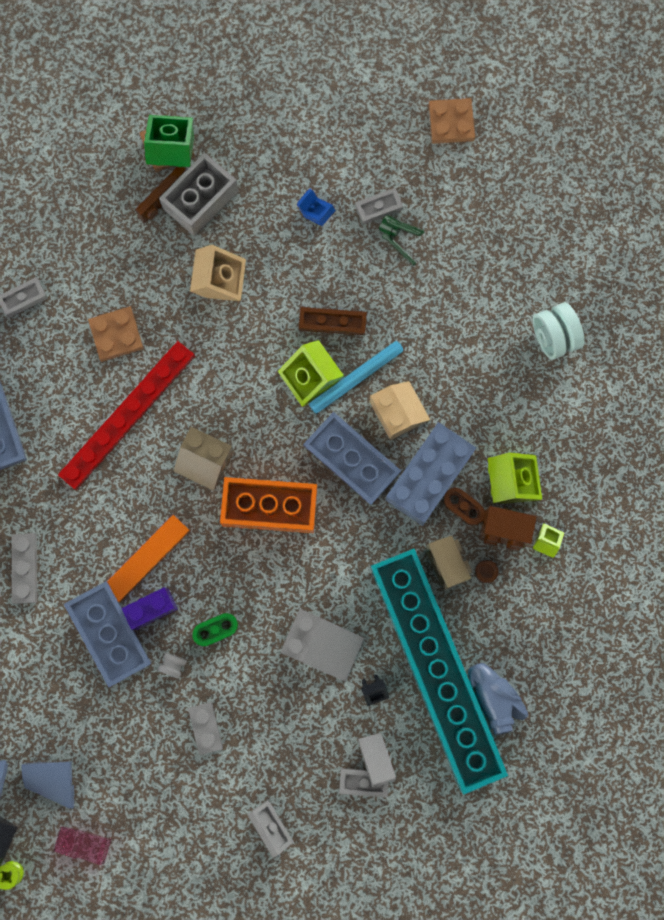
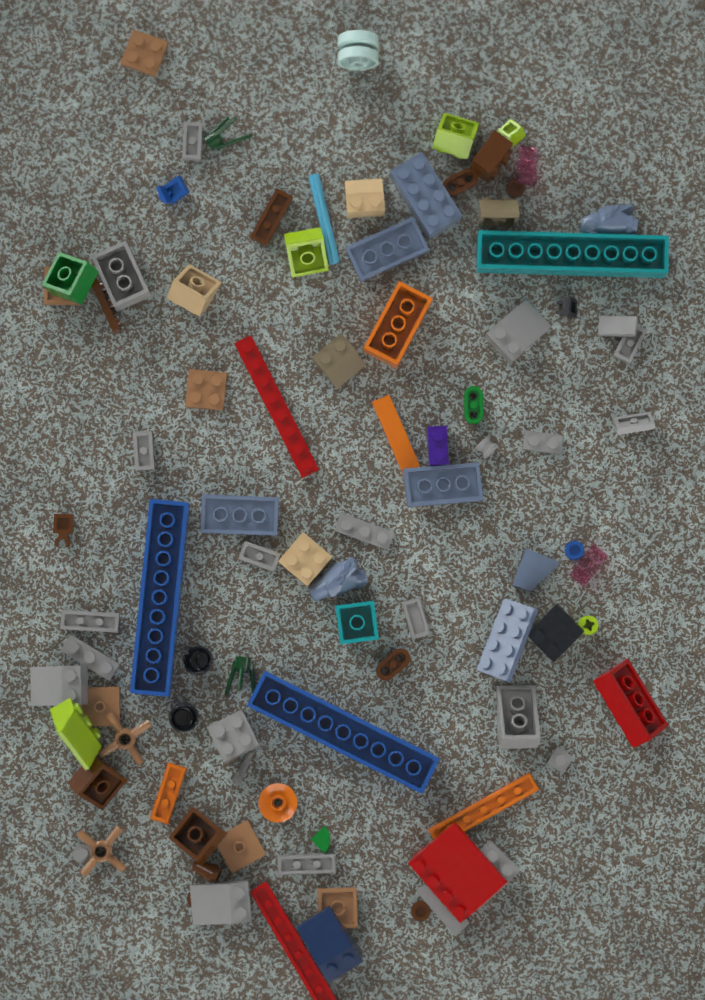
camera: 70 degrees left, 5 degrees up
(93, 820) = (574, 550): none -> blue tile
(517, 573) = (526, 166): none -> clear pink slope

